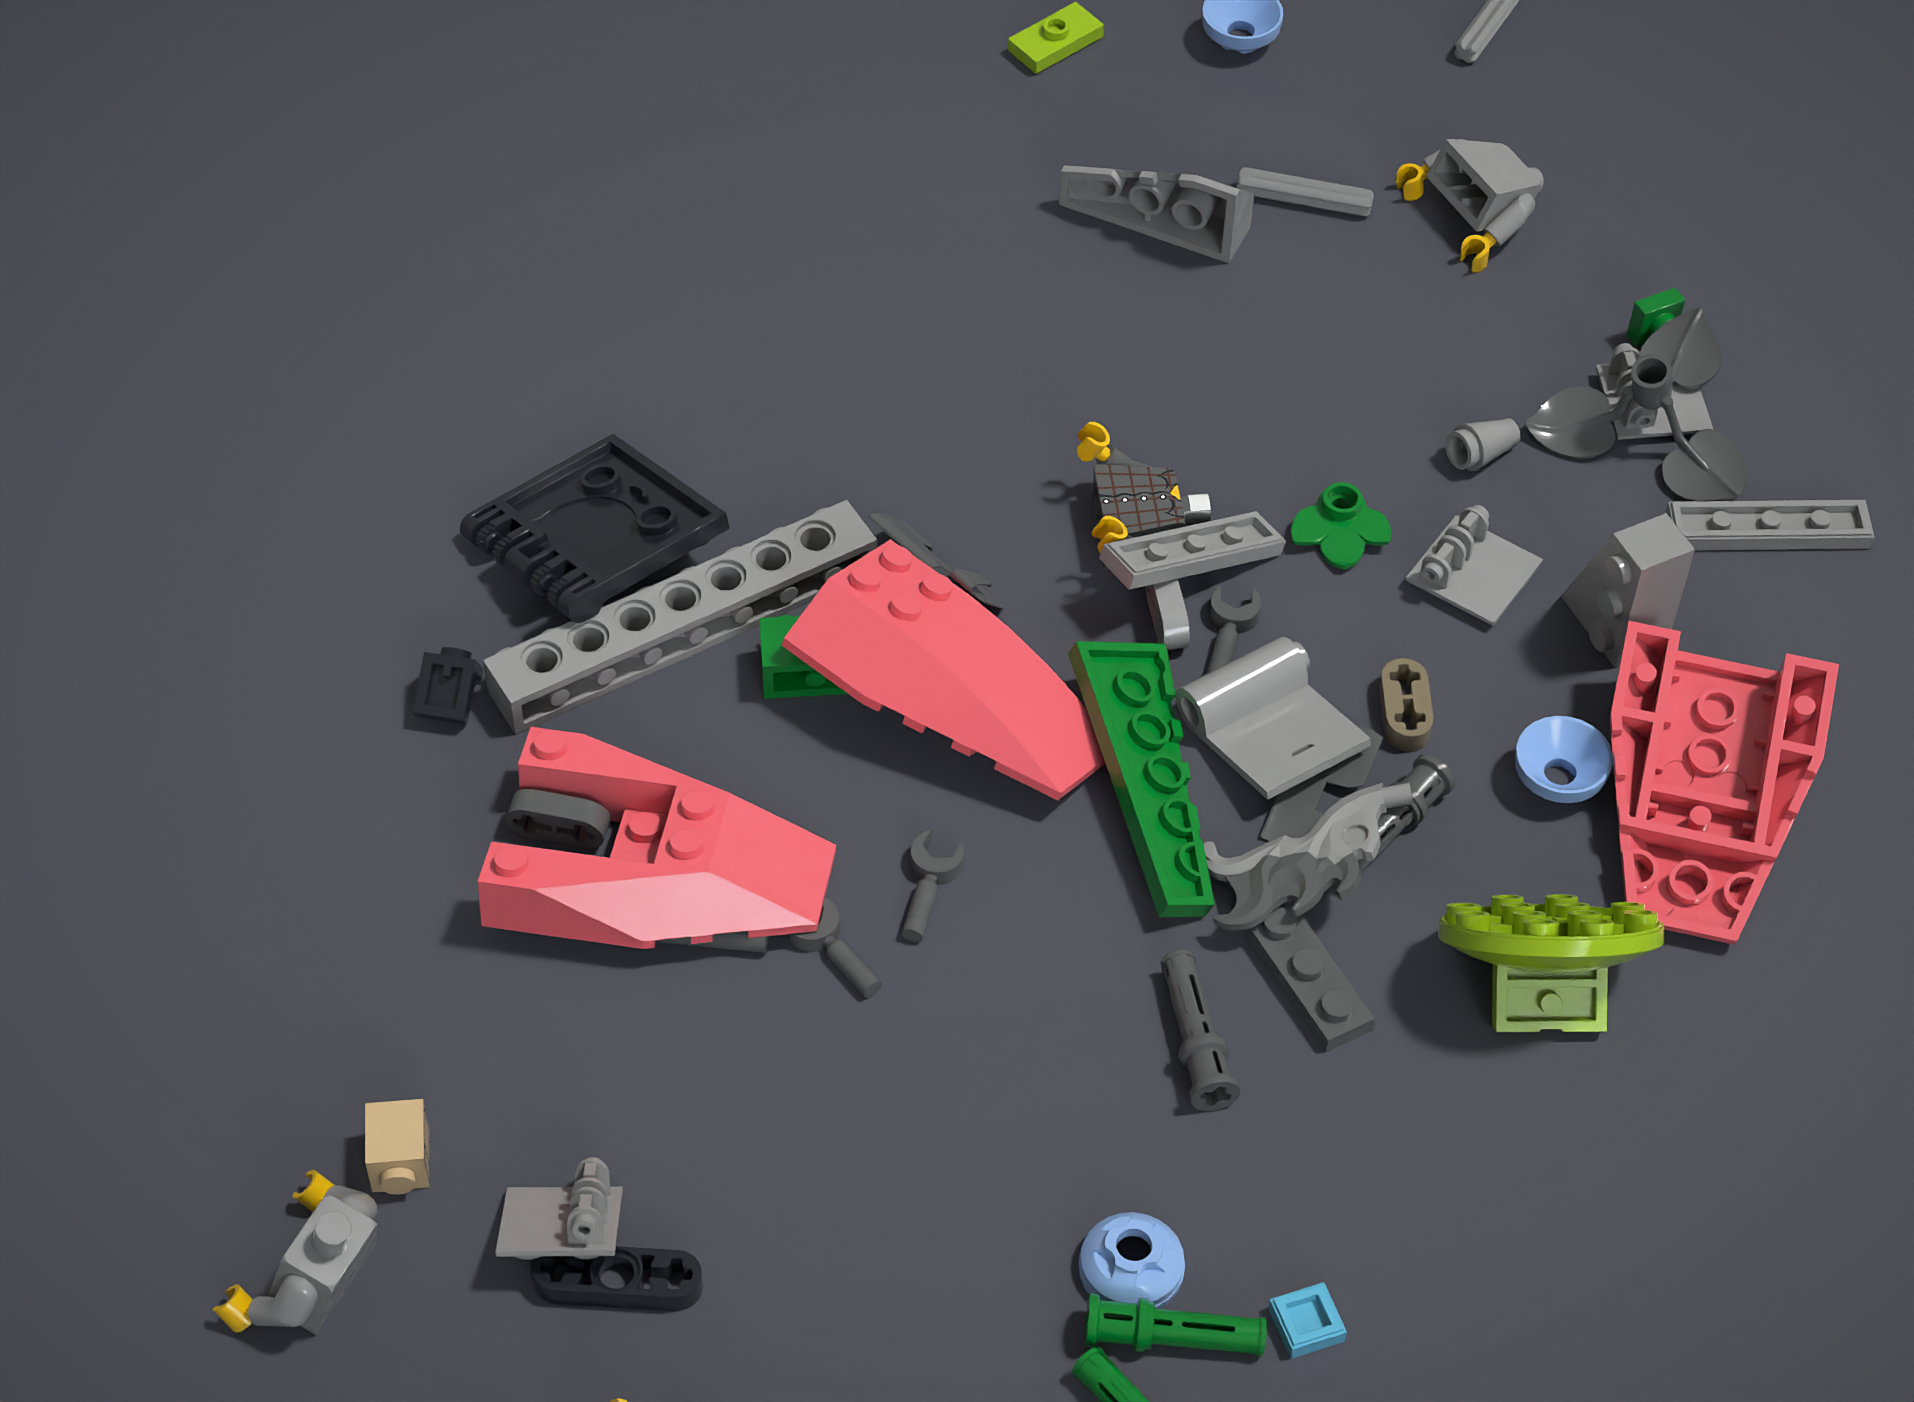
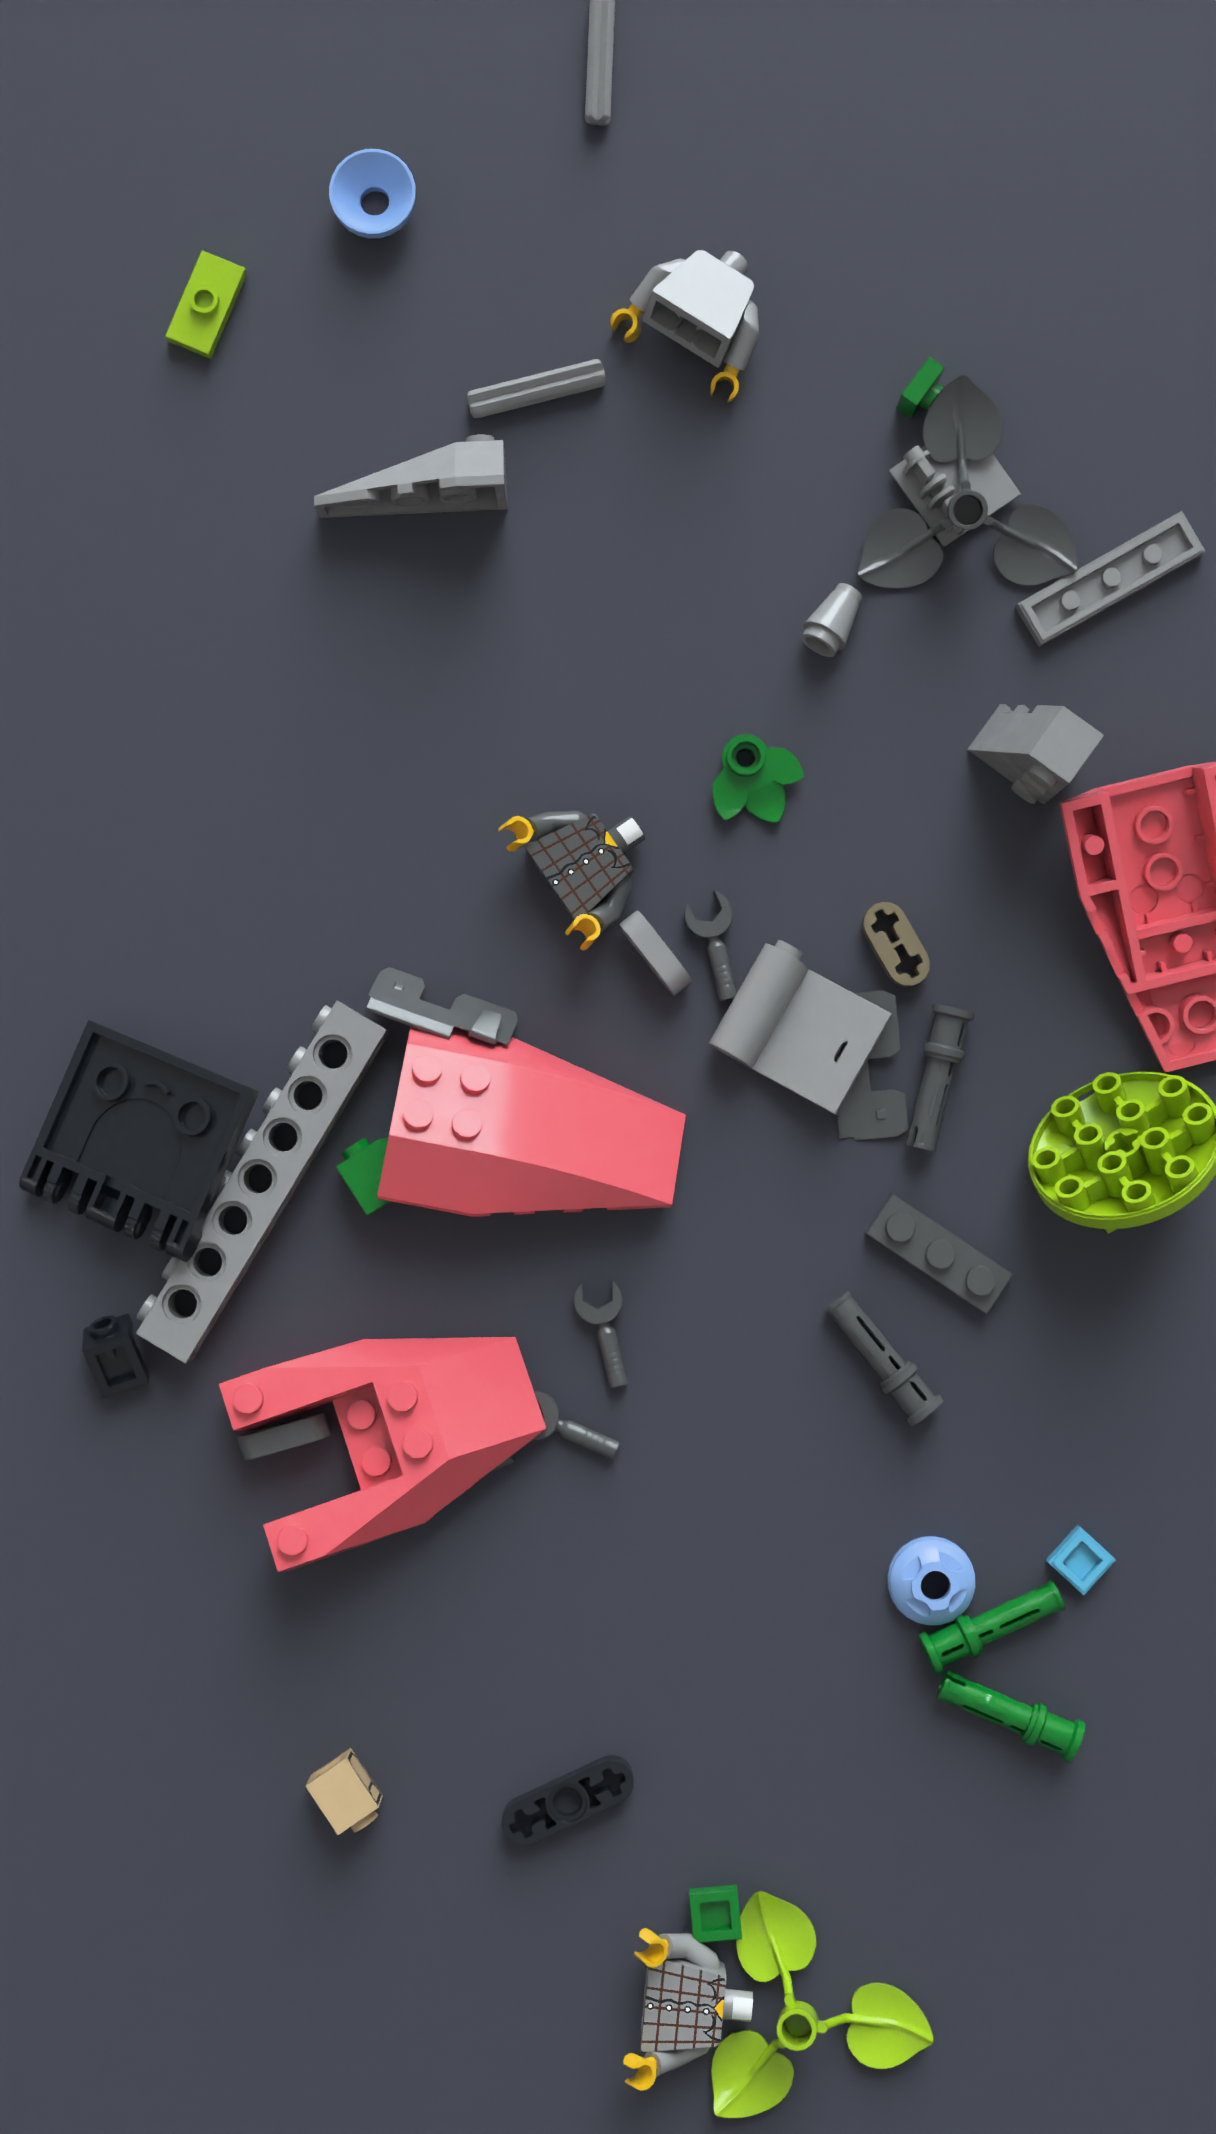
camera: 30 degrees left, 35 degrees up
(315, 1265) = (354, 1919): light grey torso -> none
(563, 1220) = (504, 1788): light grey hinge -> none
(1132, 714) = (697, 1102): green wing -> none
(1192, 550) = (652, 893): light grey tile -> none
(1308, 865) = (898, 1170): piece -> none
(1474, 567) = (886, 766): light grey hinge -> none
(1564, 744) = (1076, 940): light blue piece -> none

